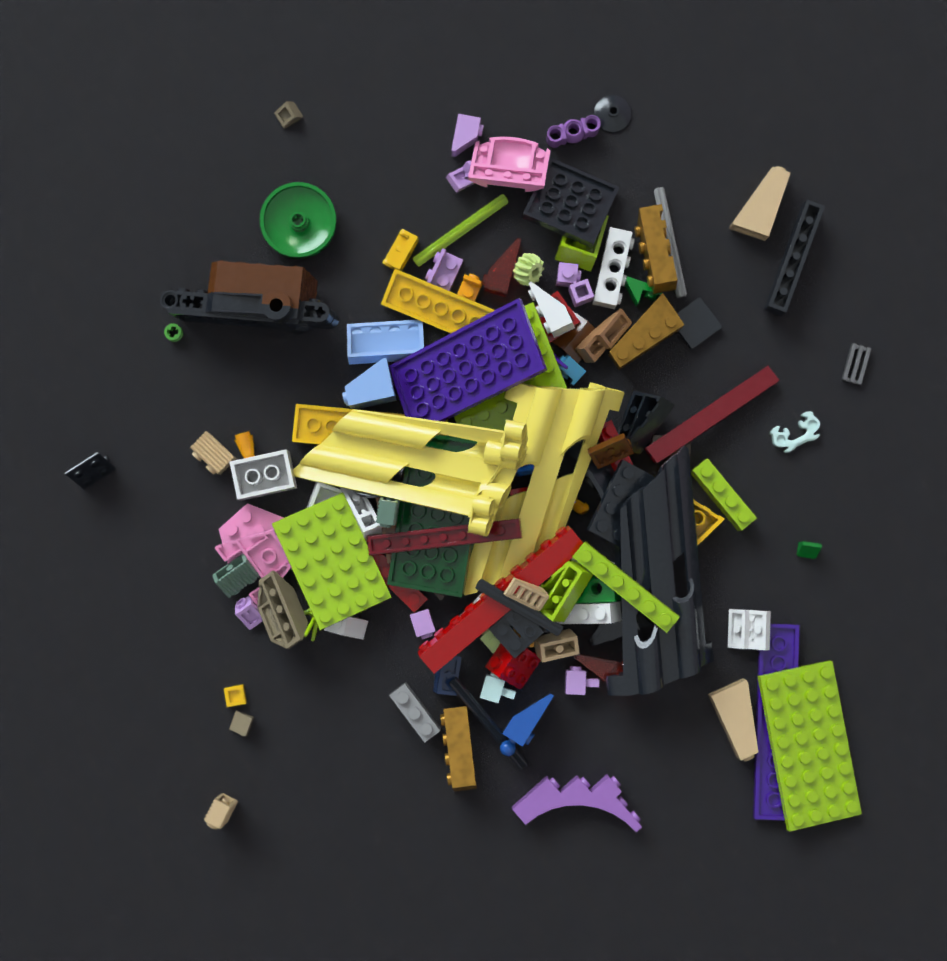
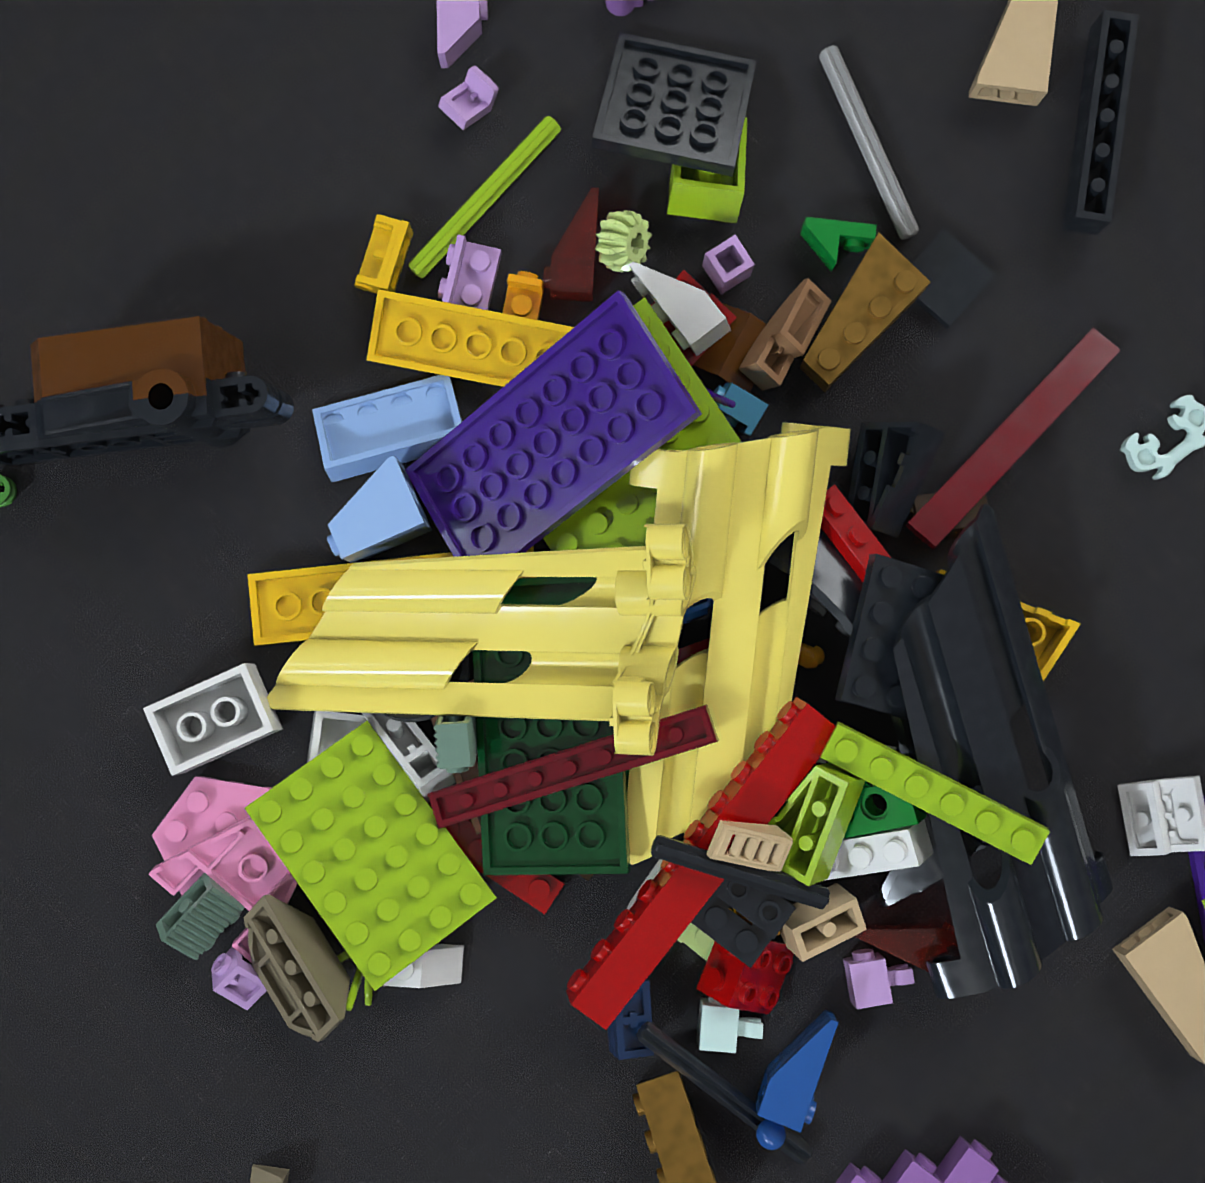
camera: 15 degrees left, 0 degrees up
(213, 453) = (112, 697): tan brick -> none
(235, 695) = (245, 1137): yellow tile -> none
(245, 444) = (170, 668): light orange cone -> none
(288, 114) = (129, 51): dark tan slope -> none
(298, 220) = (183, 237): green dish -> none
(415, 712) = (585, 1100): light grey brick -> none
(423, 623) = (565, 931): lavender brick -> none
(509, 163) = (549, 57): bright pink slope -> none
(567, 274) = (696, 236): lavender brick -> none
(610, 451) = (850, 542): reddish brown bracket -> none
(615, 238) = (769, 154): white brick -> none
(655, 249) = (849, 155): pearl gold wedge -> none
(723, 495) = (1066, 580): lime brick -> none

